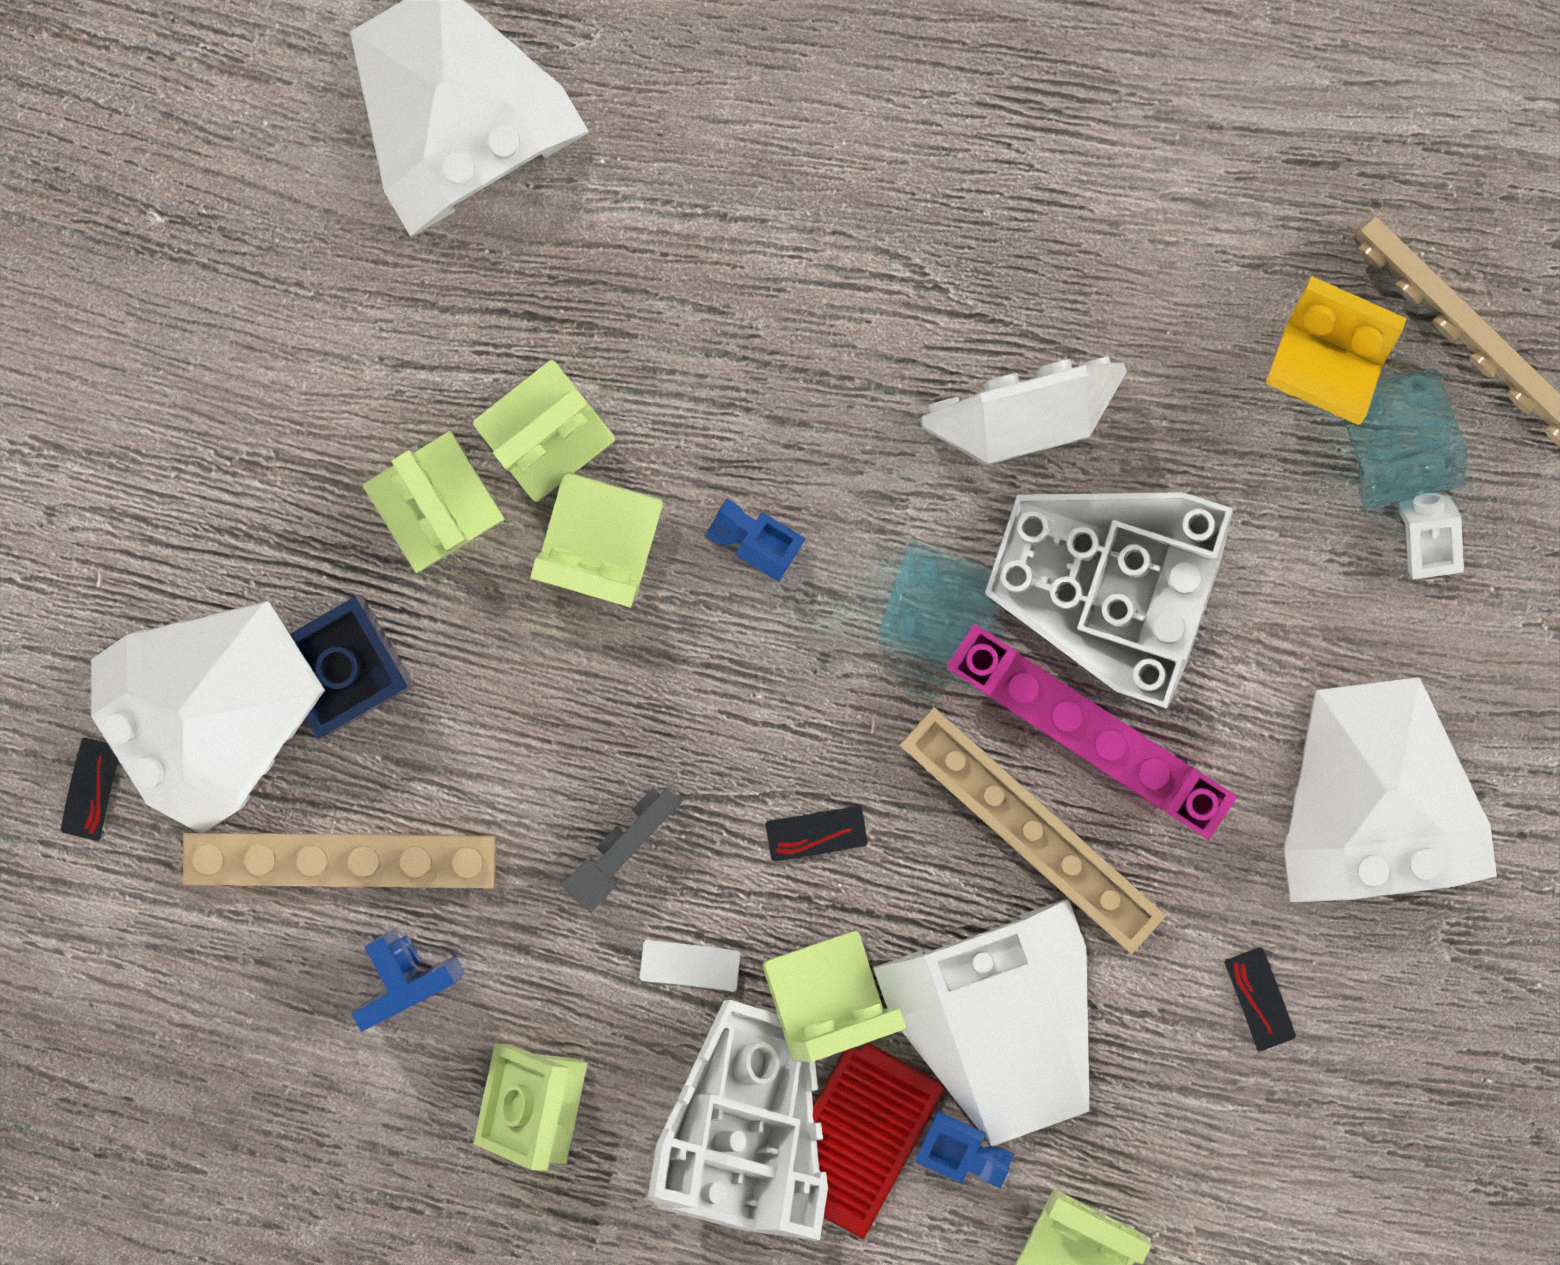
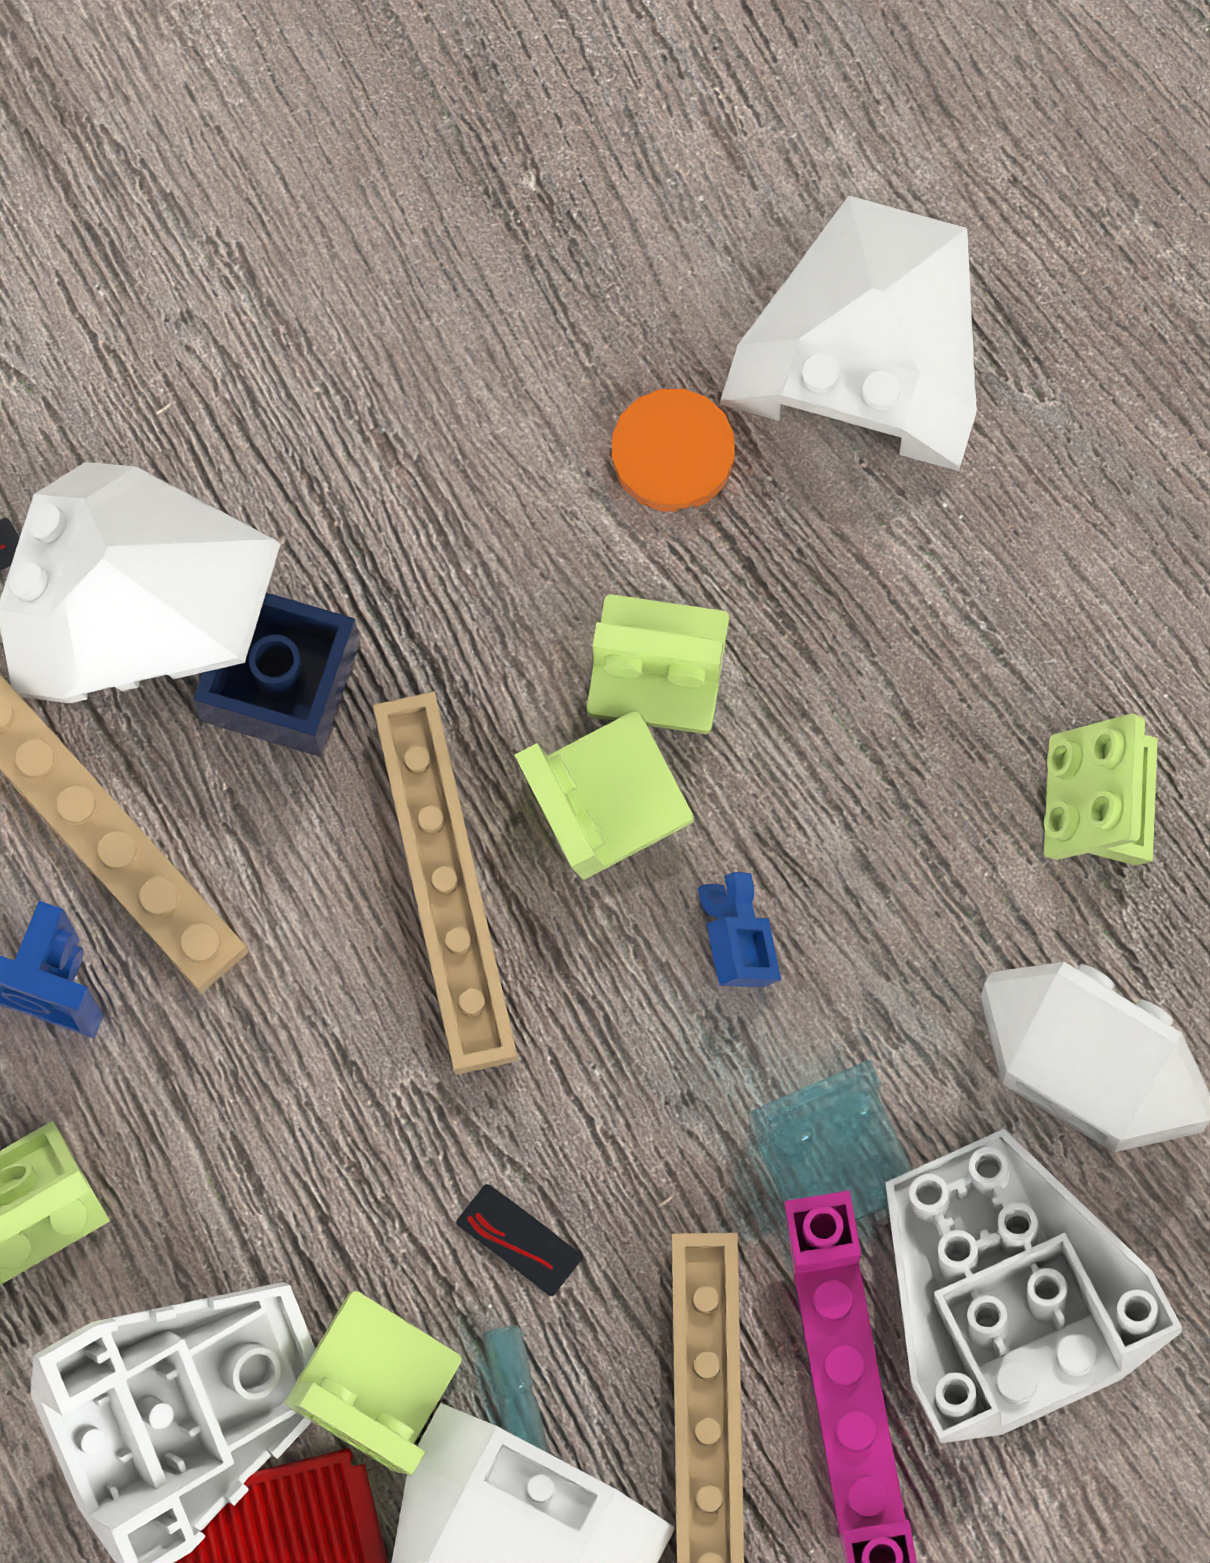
camera: 45 degrees right, 15 degrees down
(415, 295) = (673, 450): none -> orange tile
(433, 501) = (503, 625): yellowish green bracket -> none
(562, 683) = (445, 883): none -> tan plate
(594, 879) = (288, 1070): dark grey plate -> none
(690, 965) = (287, 1235): white sticker -> none
(870, 243) = (1102, 791): none -> yellowish green bracket
(903, 917) = (514, 1384): none -> clear light blue piece

